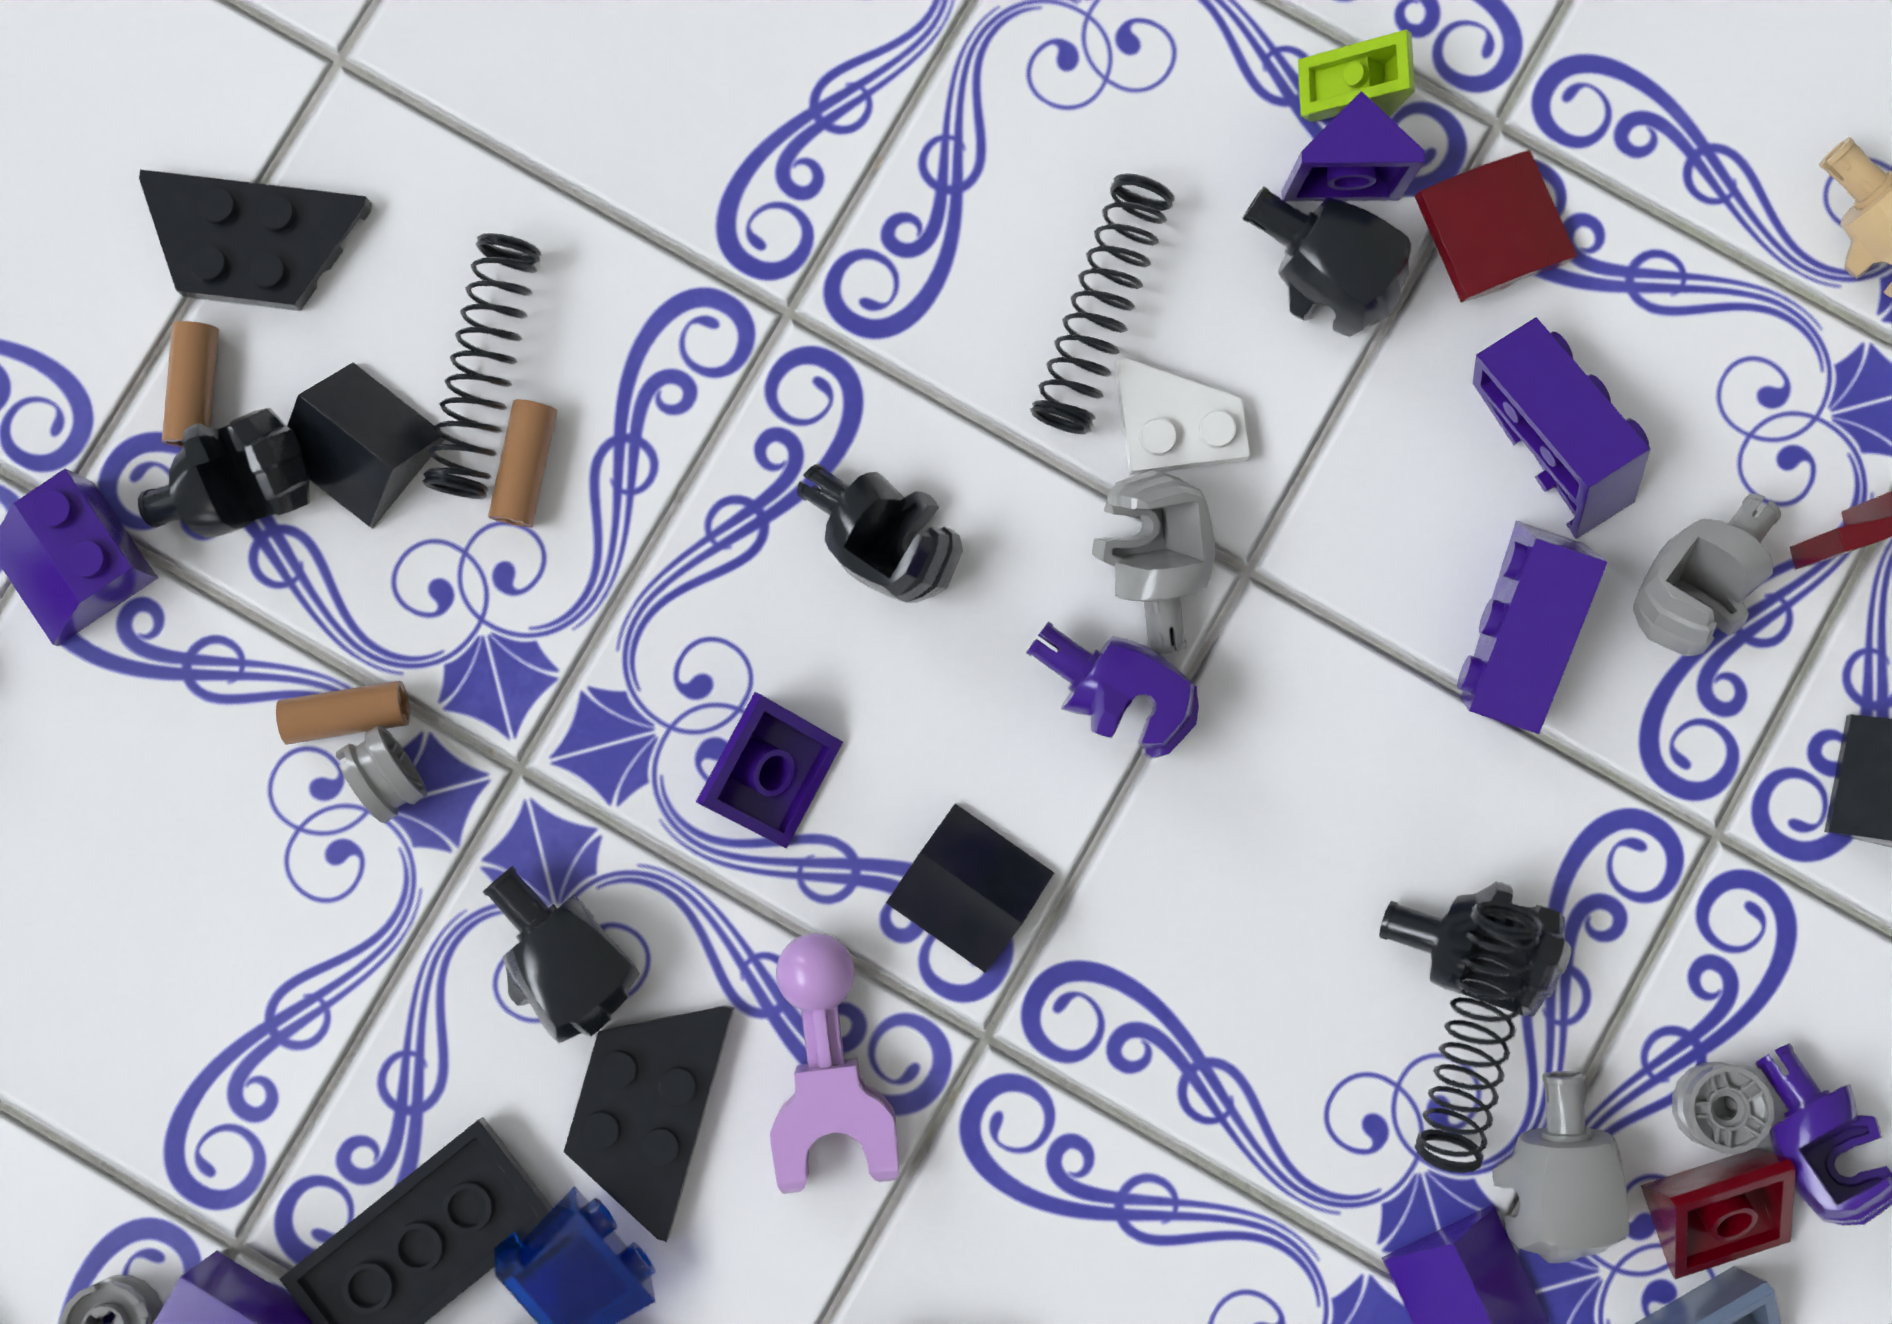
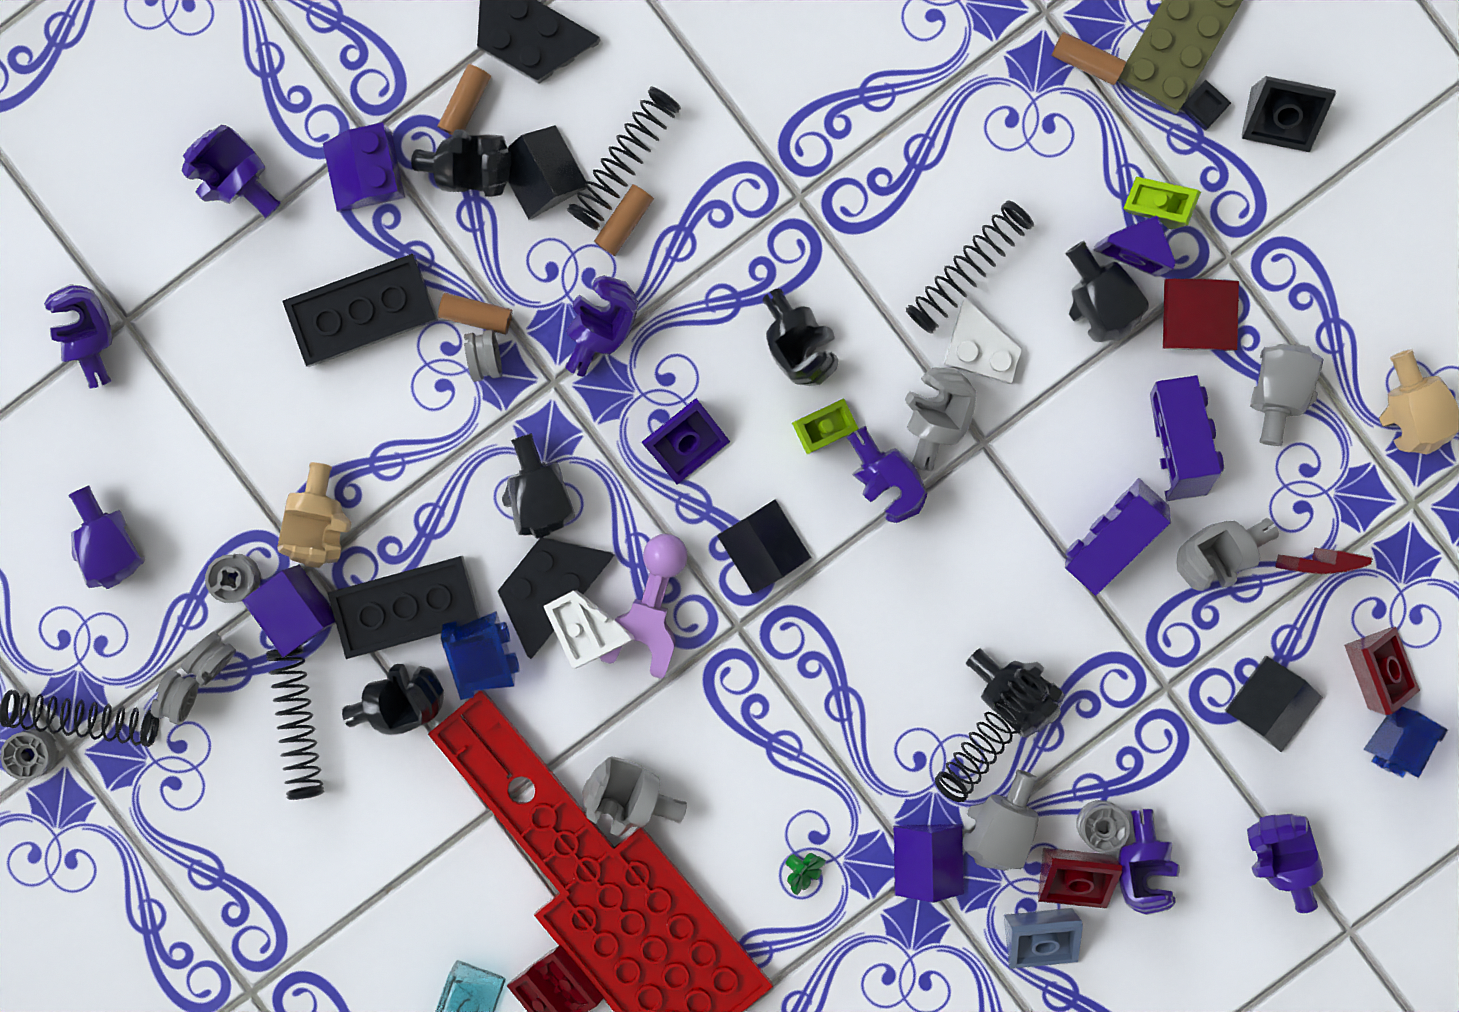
camera: 30 degrees right, 5 degrees up
(151, 788) = (360, 310): none -> black plate
(207, 1170) = (313, 522): none -> tan piece
(552, 648) = (601, 327): none -> dark purple piece
(732, 1152) = (584, 629): none -> white wing
(983, 650) = (825, 426): none -> lime slope
(1680, 279) = (1285, 387): none -> light grey piece

